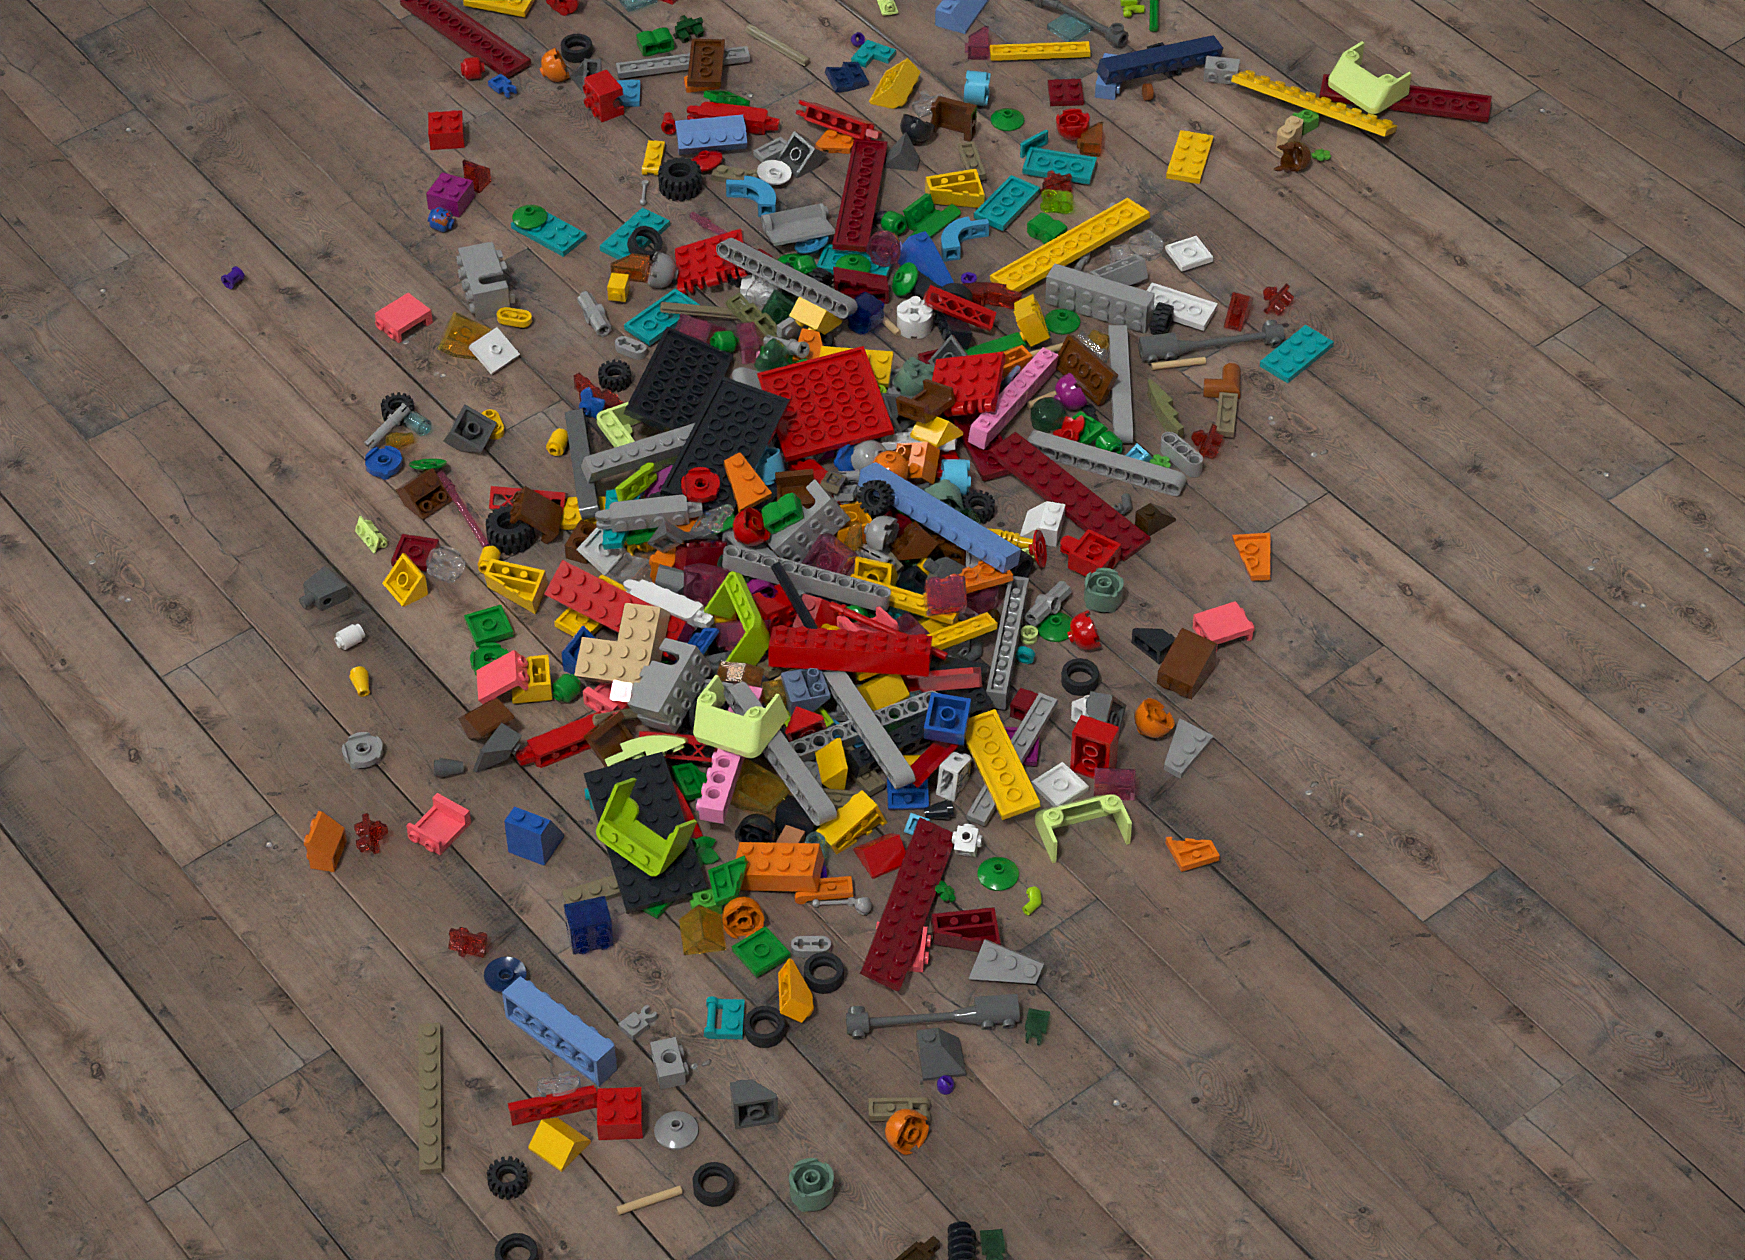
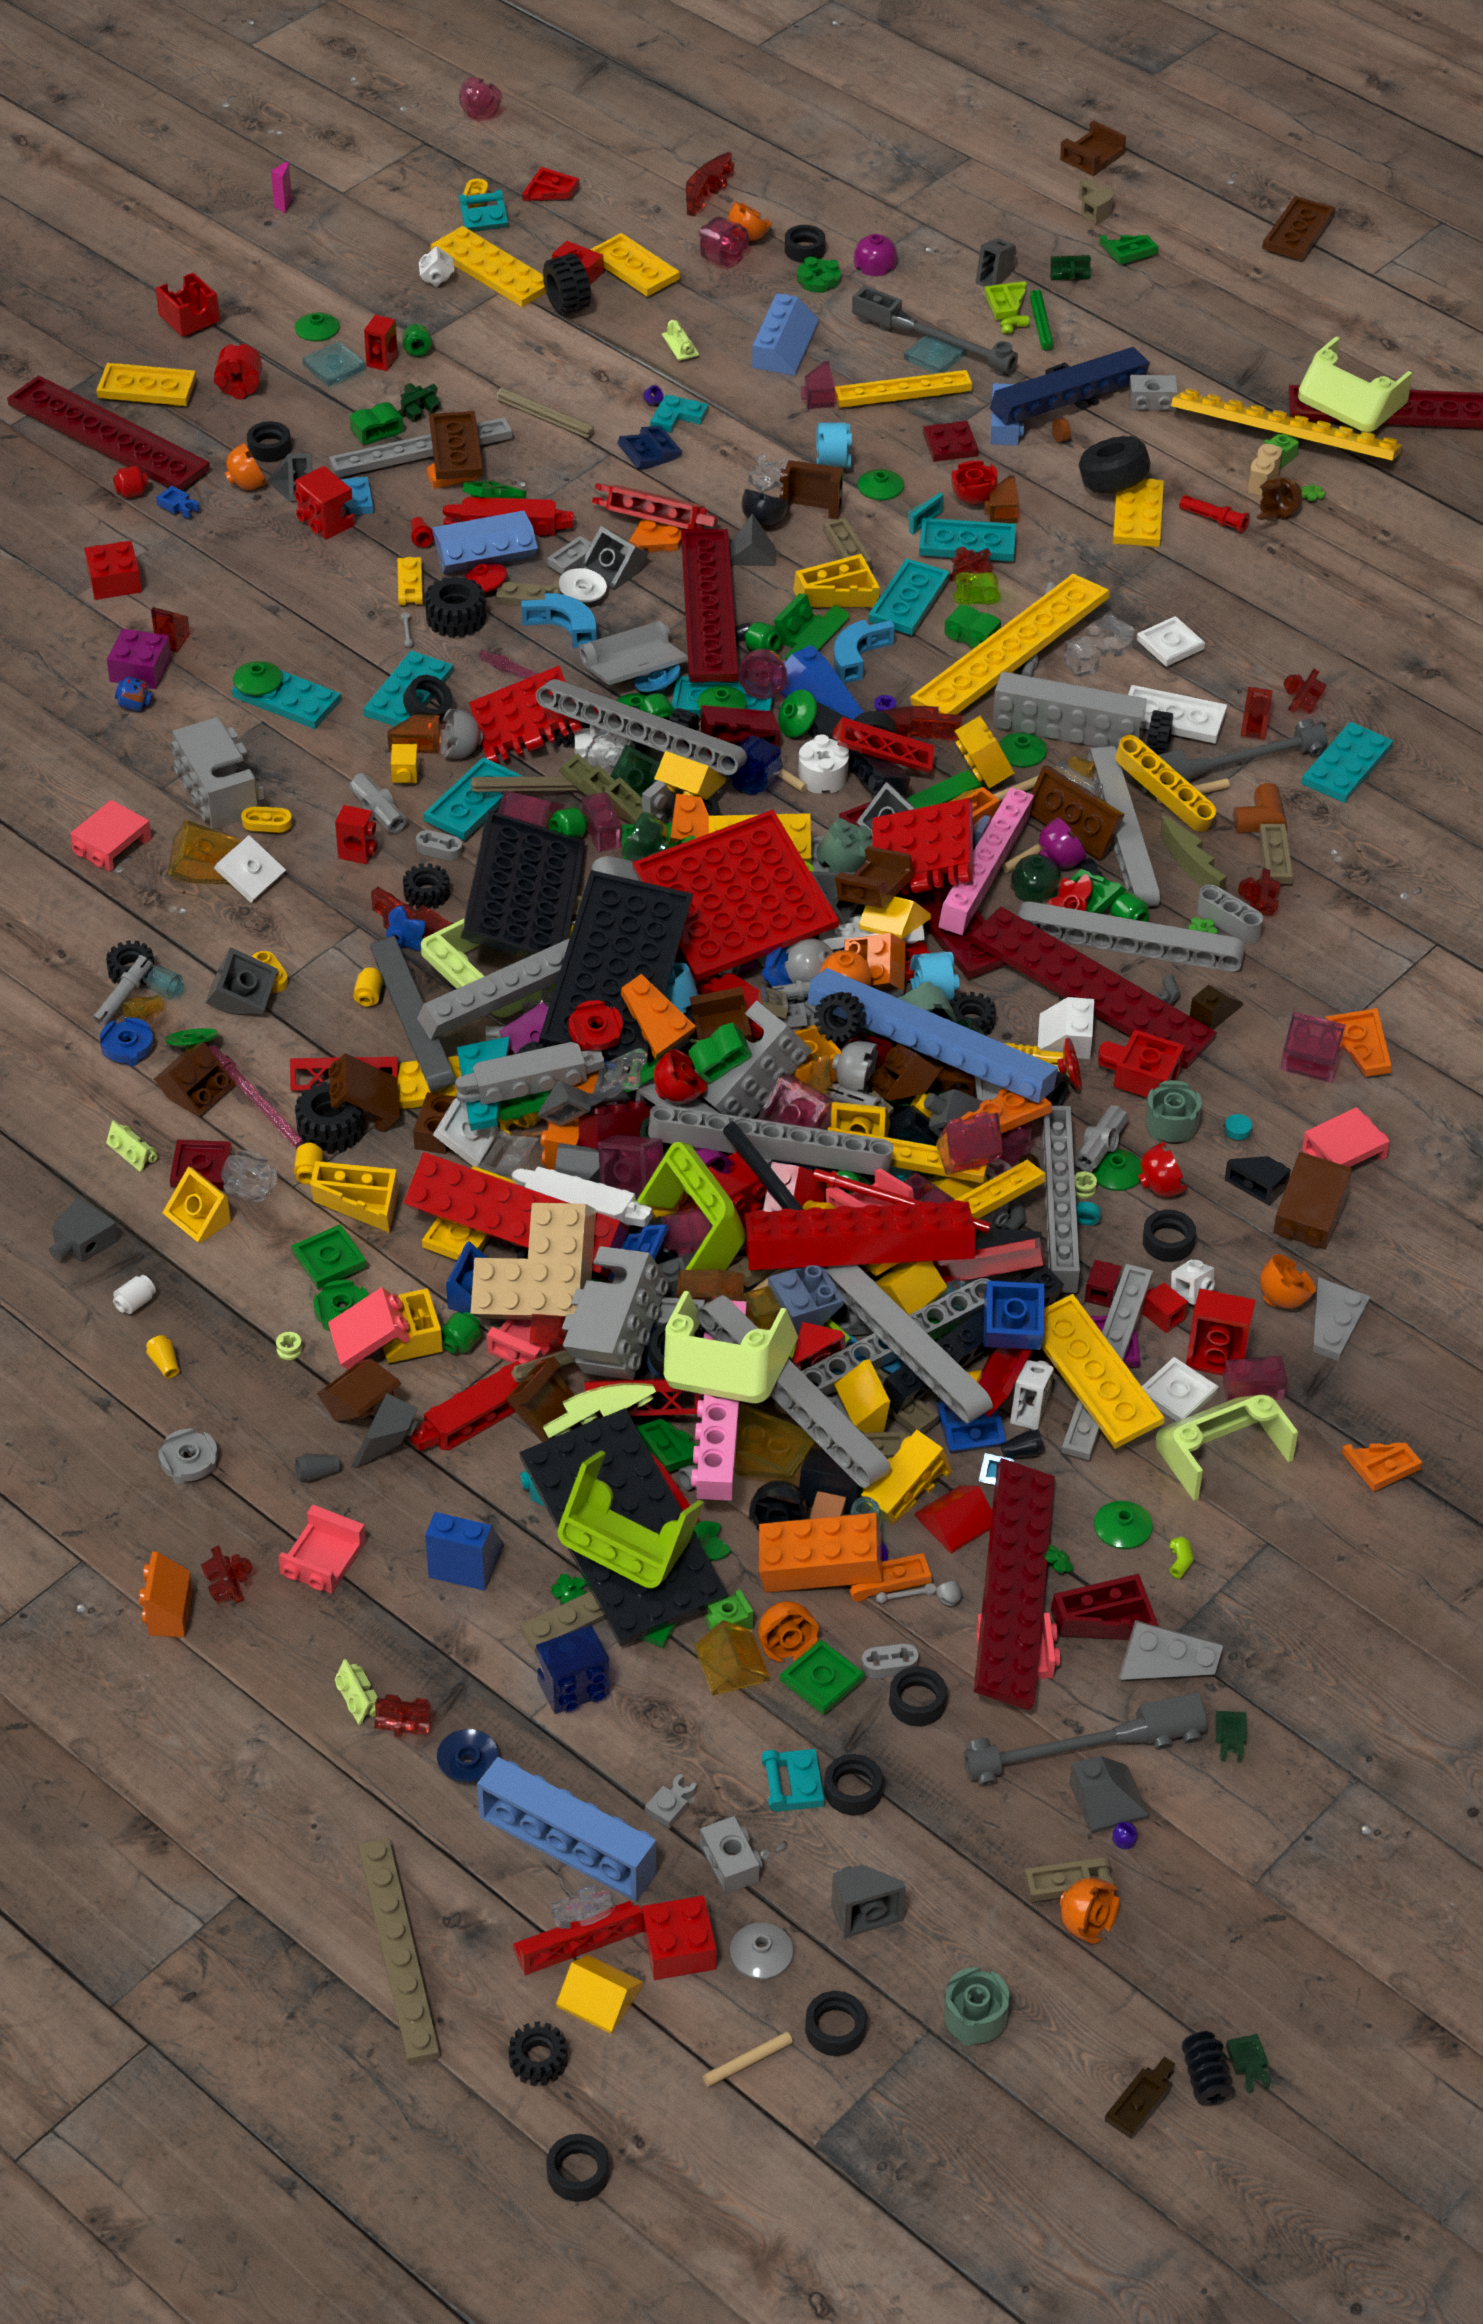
camera: 10 degrees left, 0 degrees up
(438, 916) = (352, 1683): none -> yellowish green hinge
(448, 678) = (289, 1338): none -> yellowish green bush
(571, 334) = (355, 834): none -> red brick
(600, 871) = (567, 1588): none -> green plant
(636, 483) = (501, 1032): lime hinge -> none
(727, 880) = (757, 1580): green wing -> none
(794, 347) = (673, 821): light grey pin -> none
(794, 994) = (884, 1731): light orange slope -> none
(896, 85) = (720, 452): yellow slope -> none
(964, 846) = (1069, 1492): white brick -> none
(1061, 726) = (1165, 1307): none -> red brick
(1105, 708) = (1221, 1274): dark grey slope -> none
(1125, 271) = (1096, 671): light grey brick -> none
(1139, 453) = (1172, 918): medium azure slope -> none
(1149, 606) = (1238, 1127): none -> teal tile
(1153, 347) = (1168, 794): none -> yellow beam
(1177, 120) = (1114, 464): none -> black tyre
(1215, 555) = (1313, 1047): none -> clear pink slope
(1250, 165) = (1224, 516): none -> red pin

